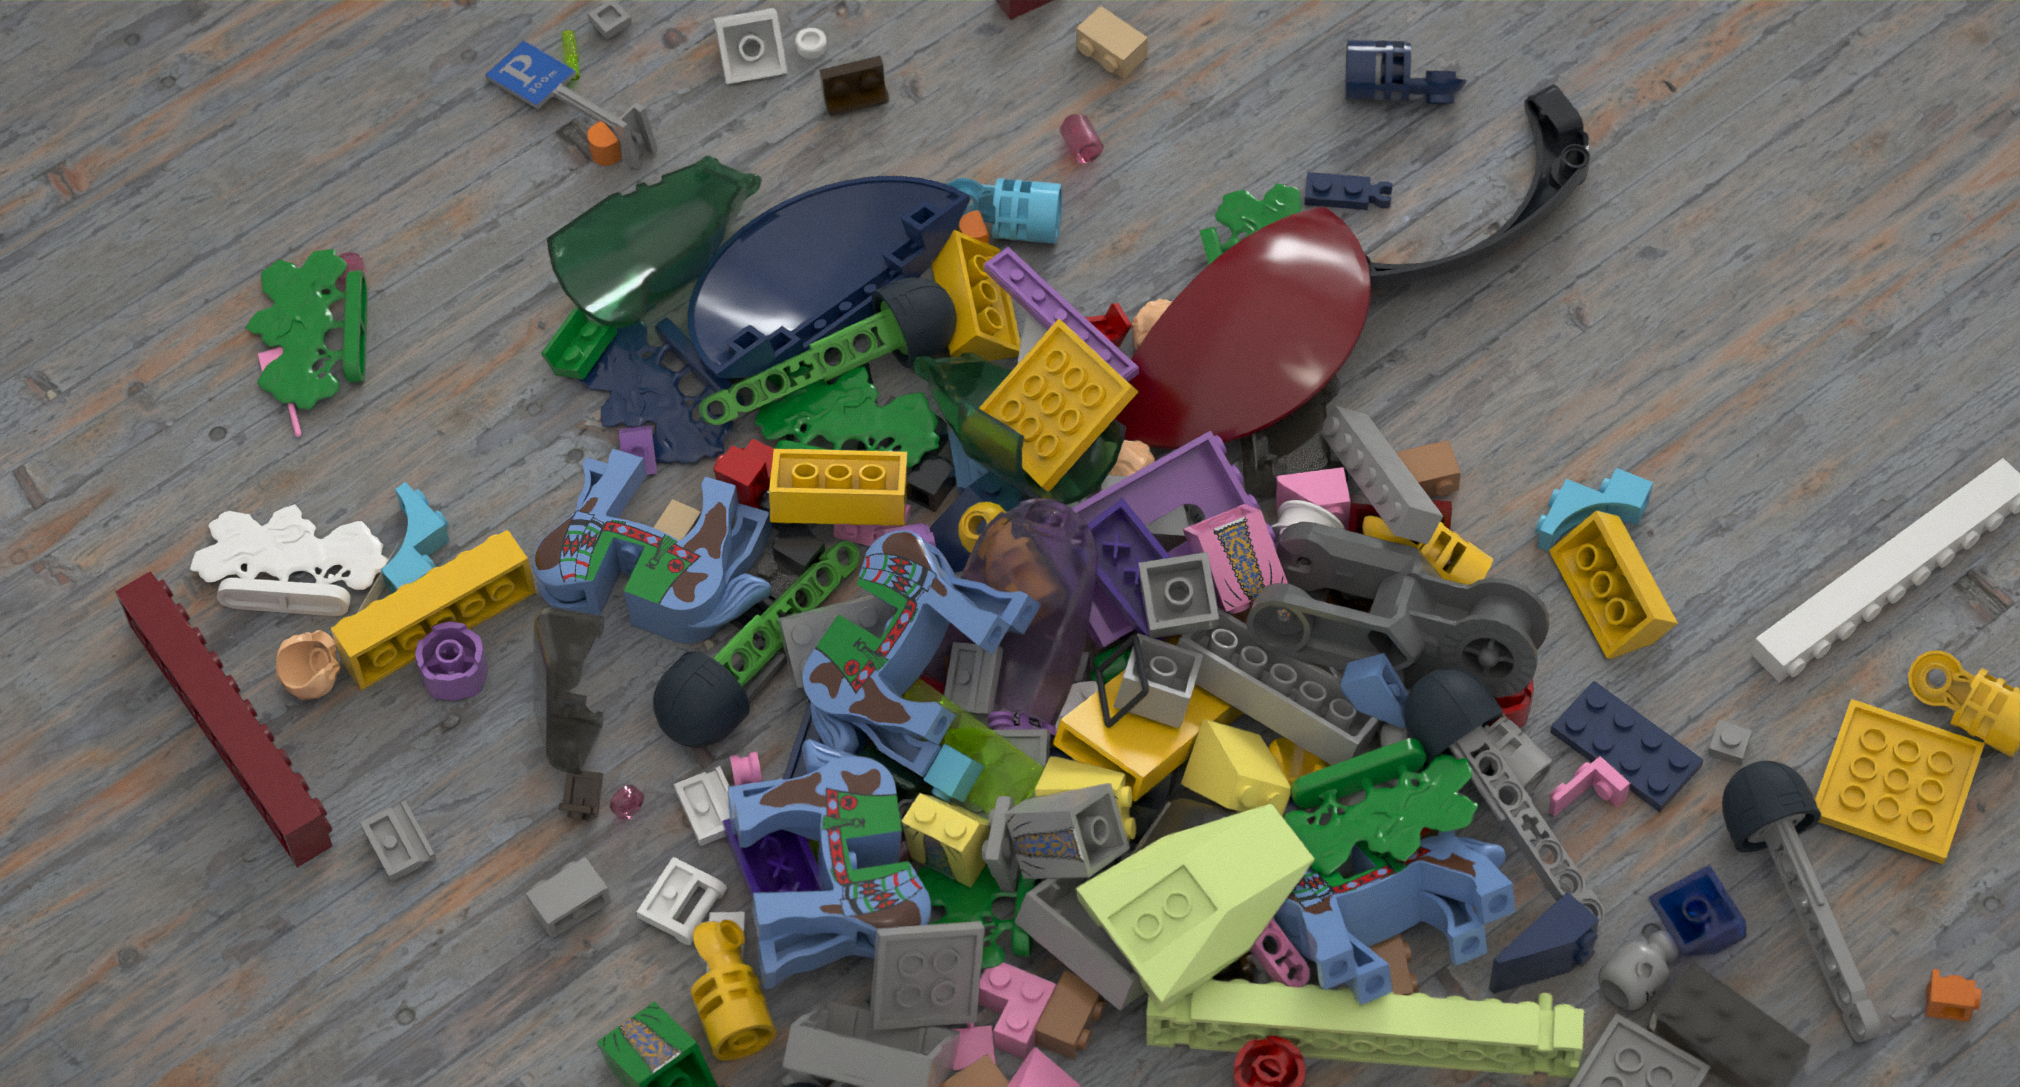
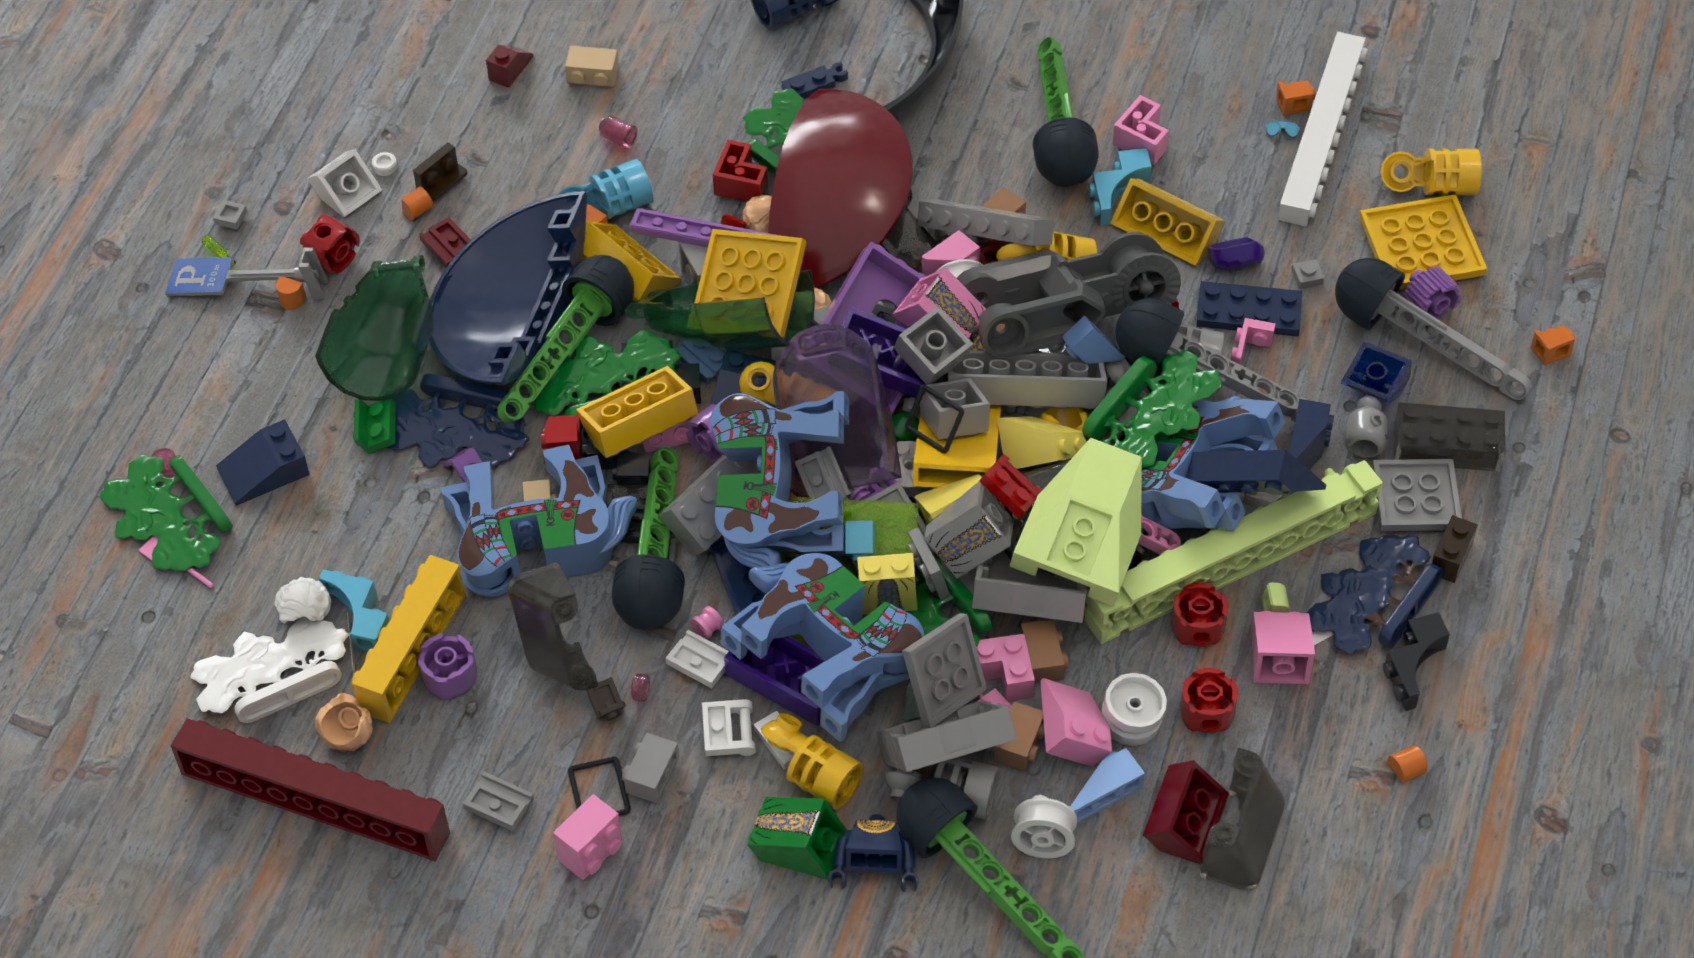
camera: 35 degrees left, 5 degrees down
(366, 504) = (303, 599): none -> white hair
(441, 327) = (263, 463): none -> dark blue slope
(446, 936) = (588, 837): none -> bright pink brick
(501, 924) = (595, 763): none -> black piece
(677, 111) = (332, 243): none -> red brick
(805, 169) = (444, 240): none -> dark red plate
(806, 109) = (416, 203): none -> orange brick
(1134, 811) = (1010, 486): none -> red plate
(1166, 258) = (736, 175): none -> red brick
(1420, 954) = (1252, 472): none -> dark blue slope
(1552, 431) = (1065, 145): none -> black piece
(1660, 669) = (1236, 253): none -> dark purple piece
(1663, 453) = (1141, 129): none -> bright pink brick
(1845, 852) = (1433, 291): none -> medium lavender brick
(1855, 550) = (1274, 126): none -> medium azure piece
(1890, 512) = (1295, 97): none -> orange brick

